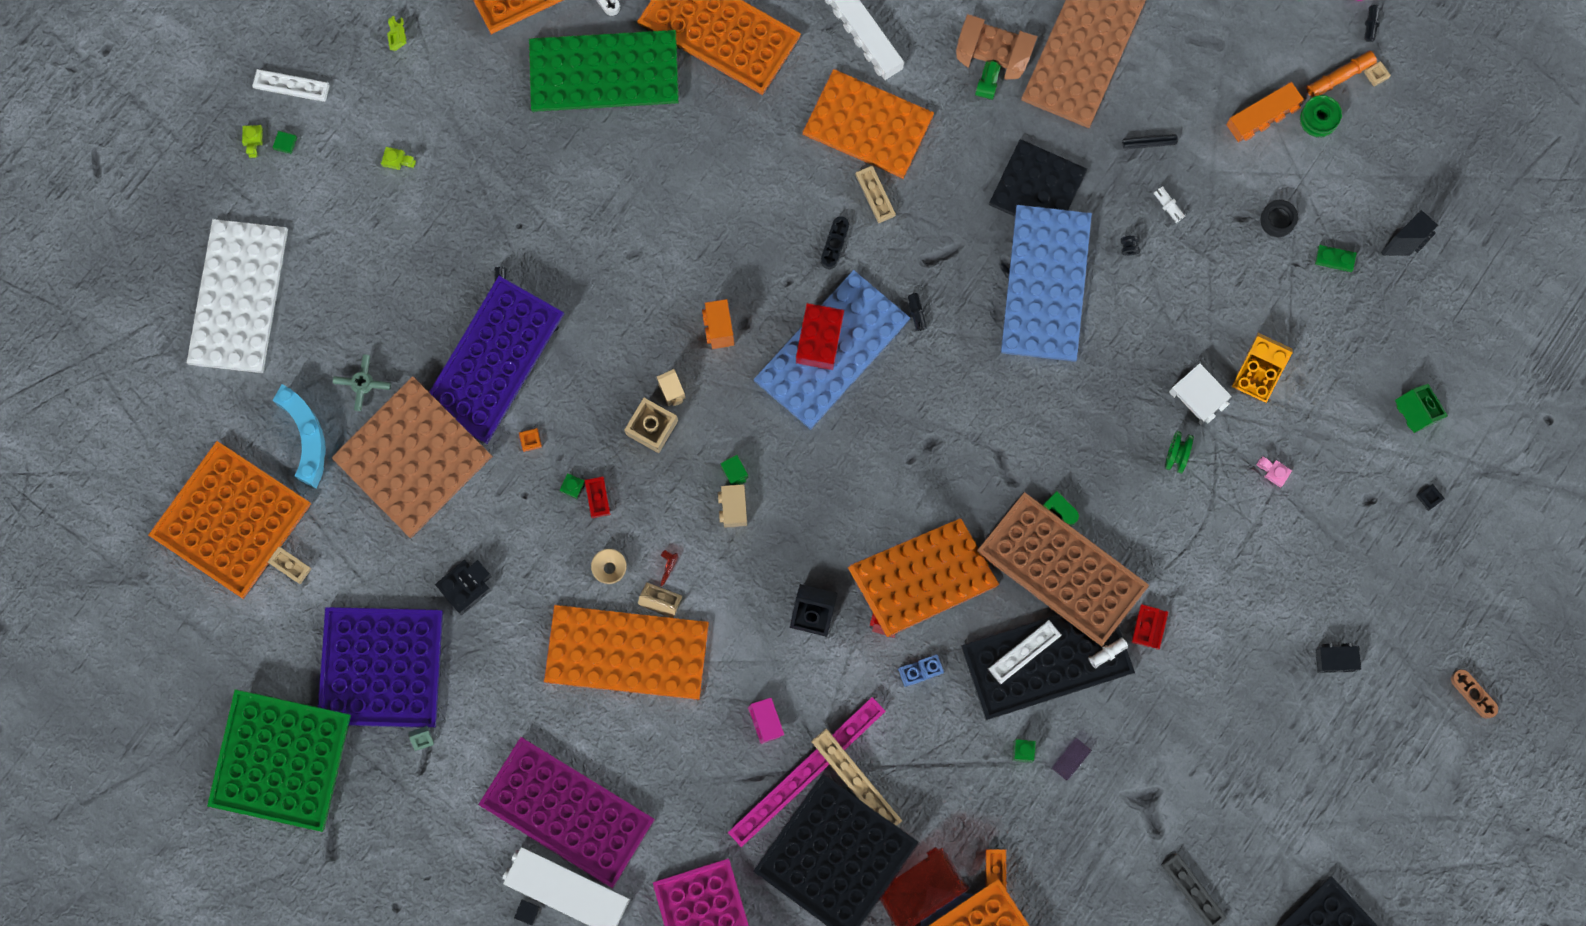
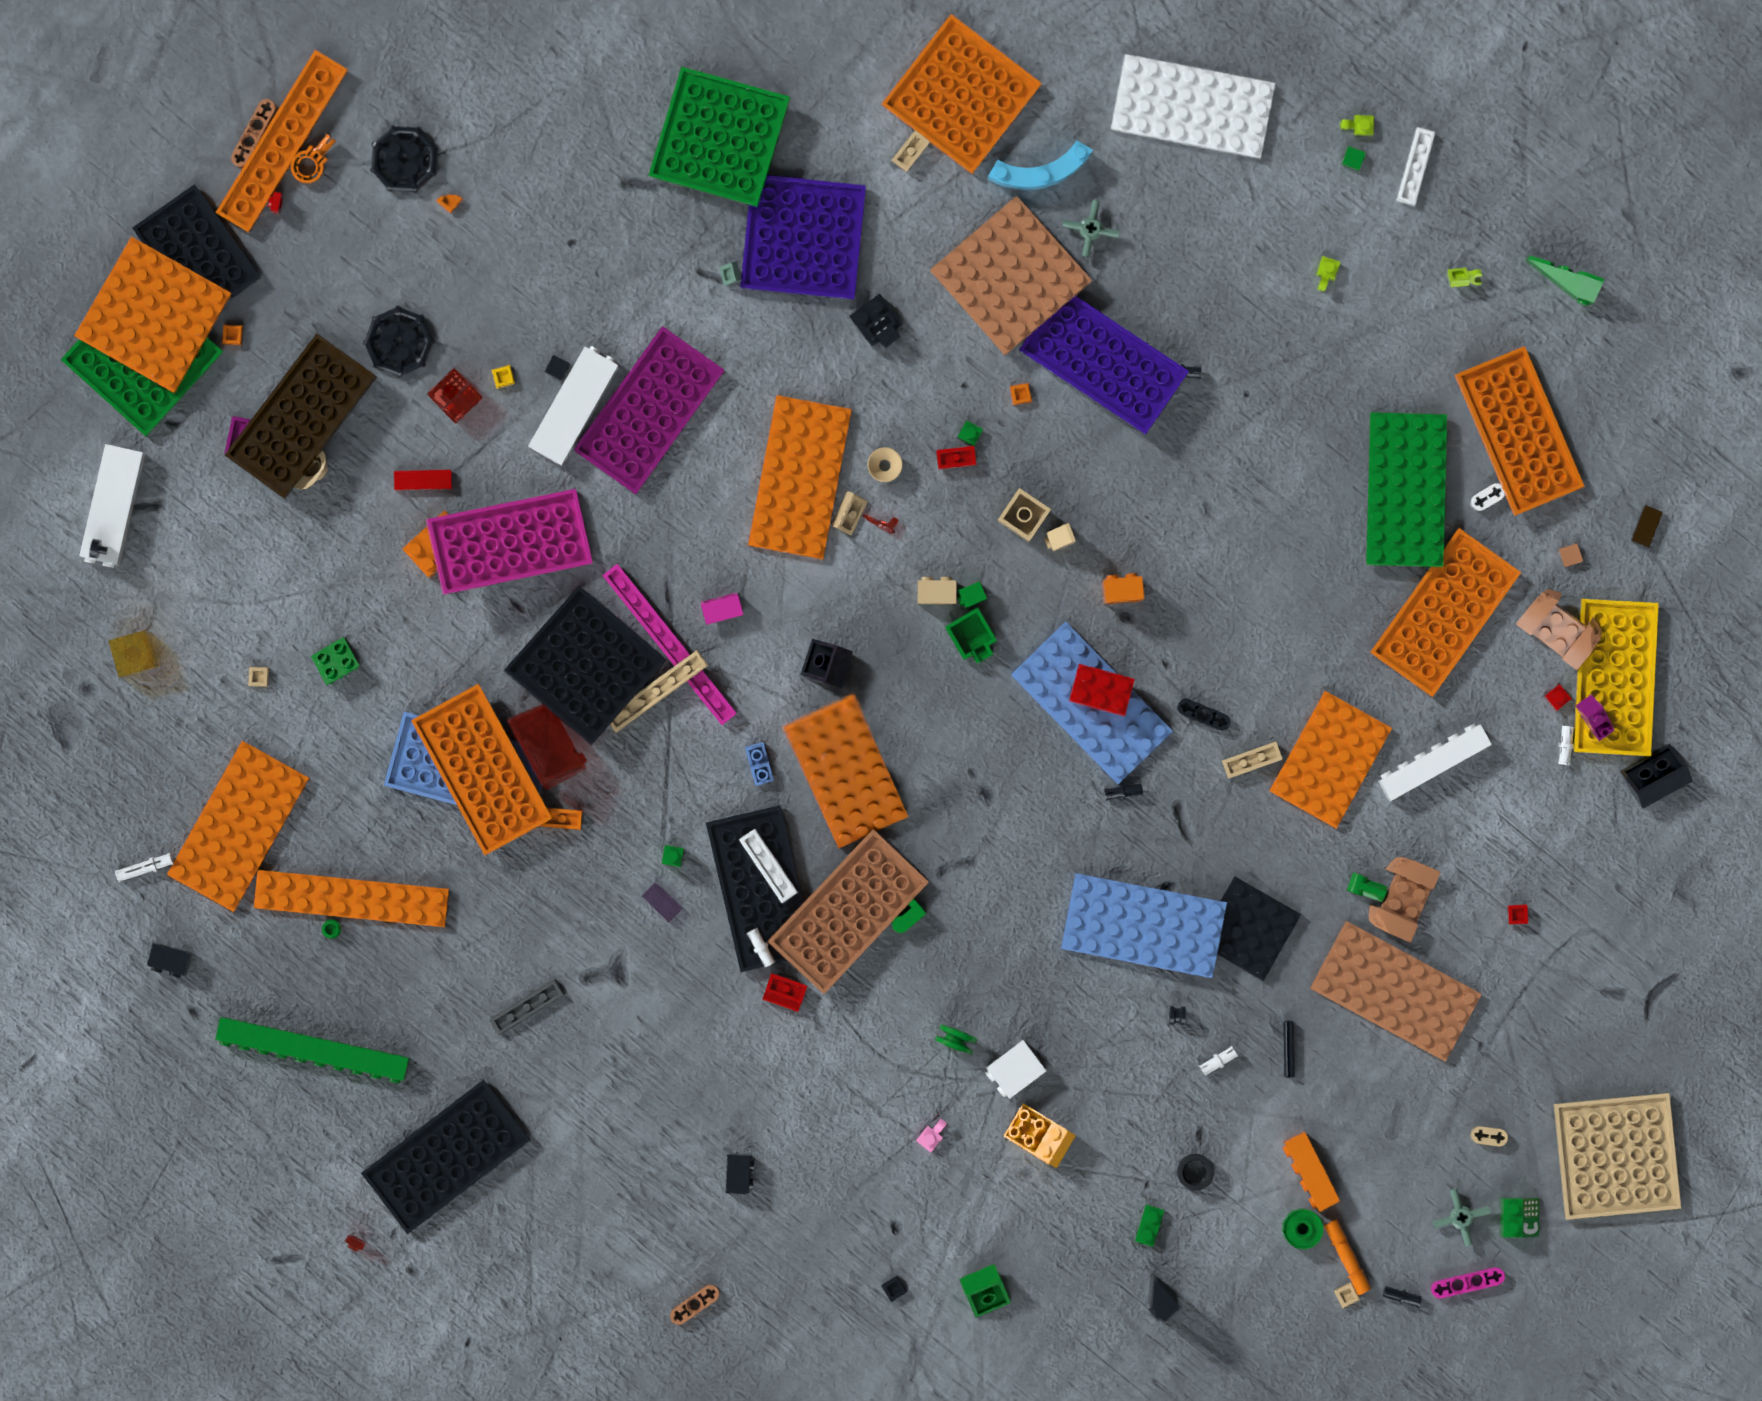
camera: 90 degrees right, 10 degrees up
(775, 468) = (972, 636): none -> green piece

